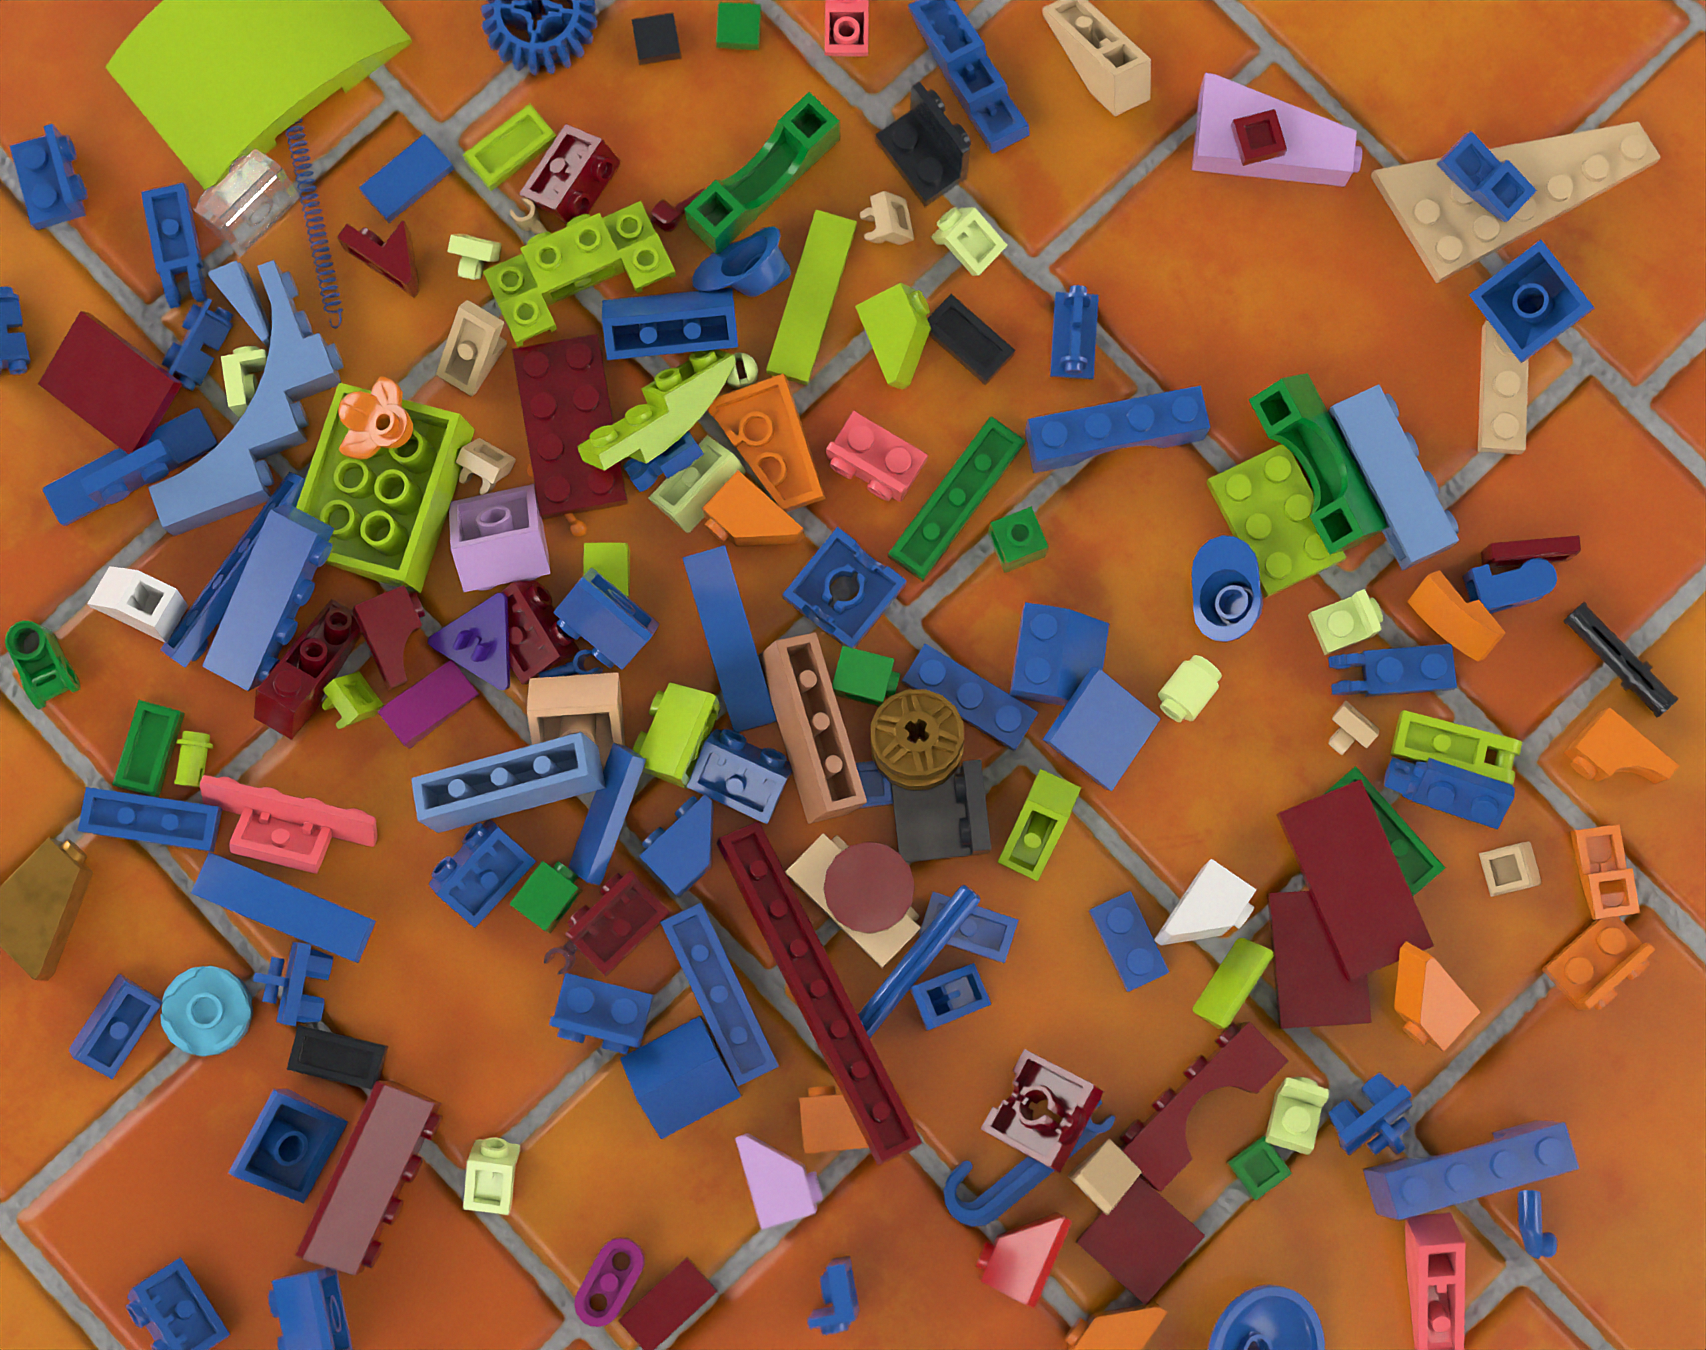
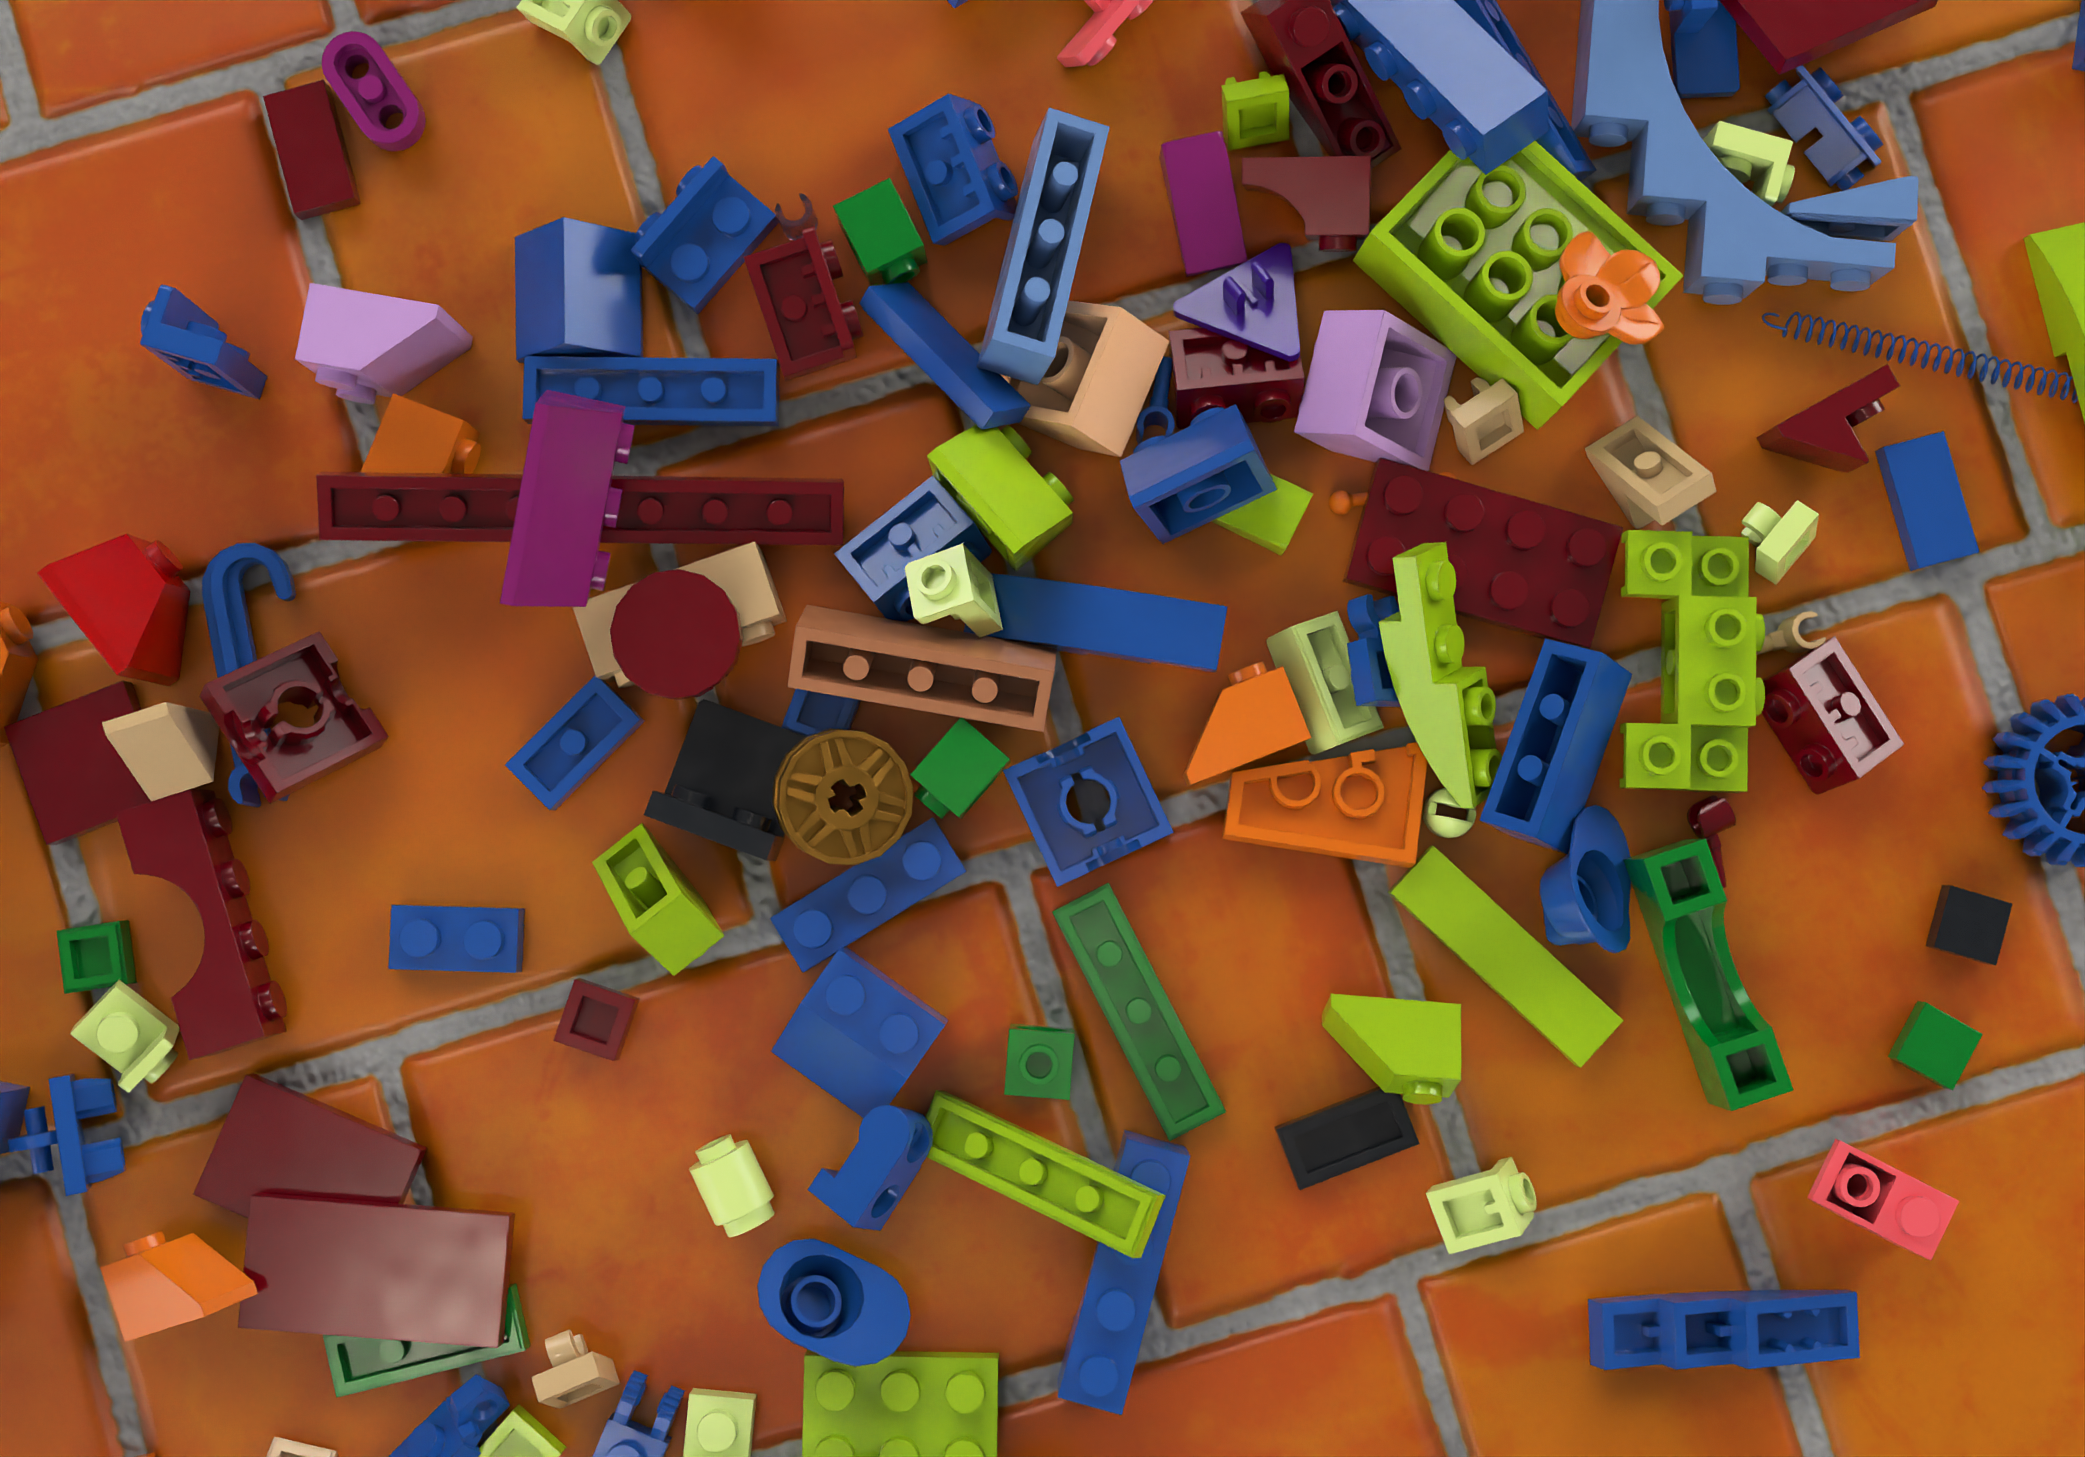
camera: 120 degrees right, 5 degrees up
(174, 240) = (1981, 160): blue hinge -> none
(247, 201) = (1992, 272): clear slope -> none
(510, 147) = (1906, 657): lime tile -> none
(685, 848) = (851, 434): blue slope -> none
(754, 733) = (954, 585): none -> yellowish green bracket
(820, 992) = (566, 501): none -> magenta slope
(875, 457) = (1245, 931): coral bracket -> none
(890, 218) = (1562, 1114): tan tile -> none
(918, 958) = (573, 683): blue axle -> none
(927, 146) = (1639, 1214): black bracket -> none
(950, 996) = (499, 672): blue slope -> none
(1074, 334) = (1283, 1281): blue hinge -> none
(1085, 505) = (1042, 1175): none -> lime tile
(1101, 728) = (736, 1042): tile -> none
(1132, 602) = (878, 1169): none -> blue leg
(1132, 825) = (596, 1019): none -> dark red plate
(1208, 906) = (440, 1059): white slope -> none
(1232, 982) = (332, 1043): lime slope -> none

